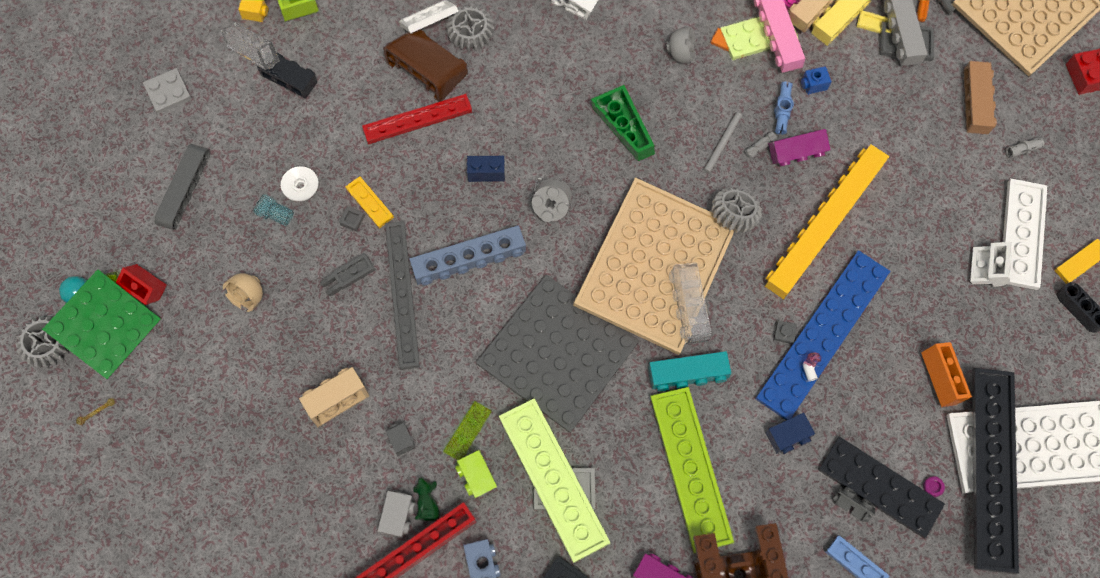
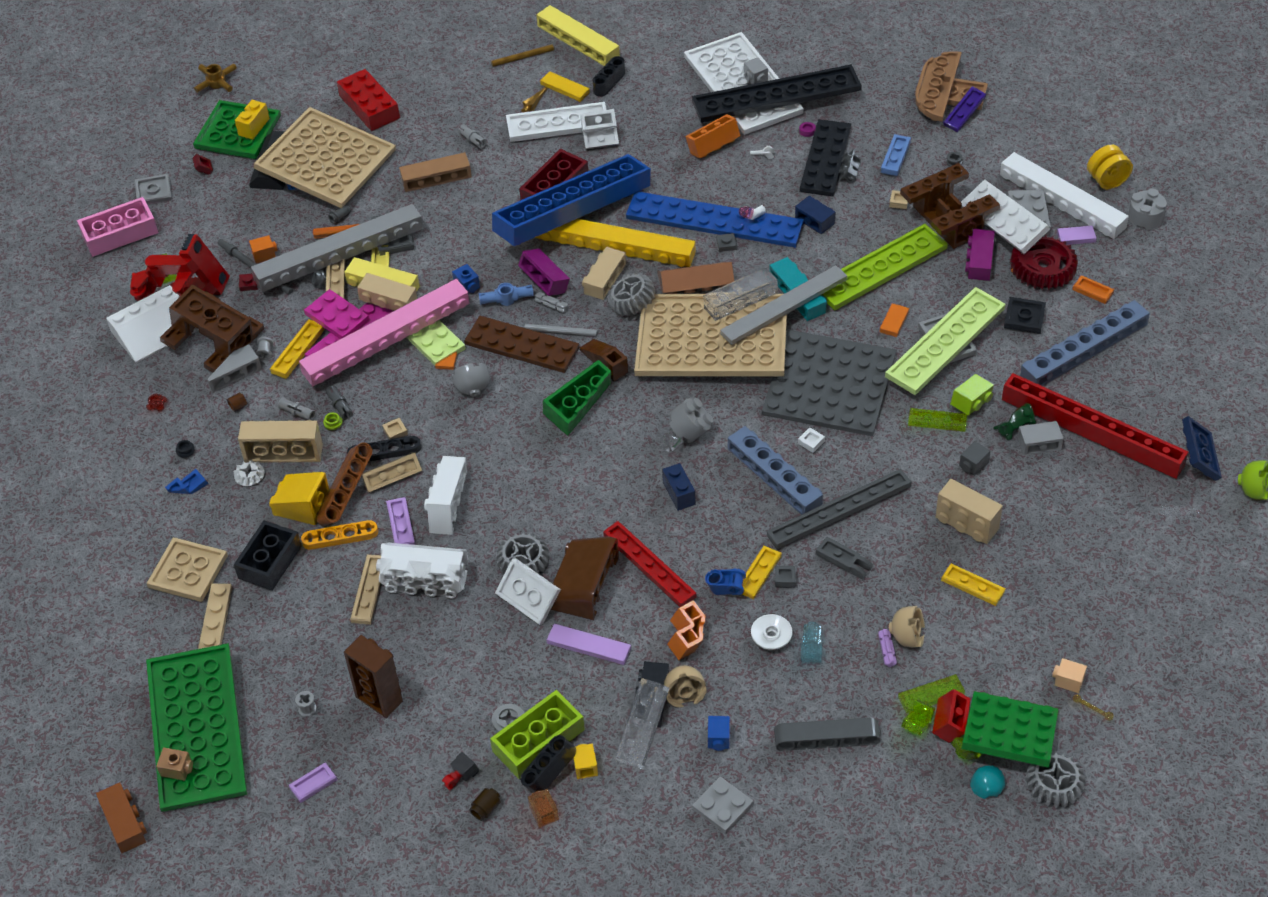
camera: 105 degrees left, 20 degrees down
(130, 403) = (1069, 675): none -> light nougat brick
(156, 260) = (919, 718): none -> clear neon green bracket
(178, 285) = (930, 692): none -> clear neon green tile
(226, 108) = (718, 732): none -> blue brick
(237, 268) = (887, 648): none -> lavender axle
(267, 372) = (973, 584): none -> yellow tile
(281, 97) = (685, 683): none -> tan cylinder
(321, 115) = (689, 623): none -> orange brick
(362, 50) = (589, 644): none -> lavender tile
(364, 165) = (728, 581): none -> blue piece
(491, 303) = (811, 440): none -> white plate
(613, 450) = (894, 320): none -> orange tile
(662, 341) = (783, 305): none -> light grey tile
(666, 162) = (608, 355): none -> reddish brown slope
(717, 105) = (522, 344): none -> reddish brown plate
(743, 281) = (696, 277): none -> nougat slope
(780, 200) = (604, 273): none -> tan brick
(786, 534) = (898, 200): none -> tan plate
(881, 193) = (570, 199): none -> blue brick
(908, 424) = (767, 151): none -> white hand
(924, 195) = (556, 170): none -> dark red brick
(1037, 458) = (755, 71): none -> light grey brick
(1062, 218) = (531, 103): none -> pearl gold piece

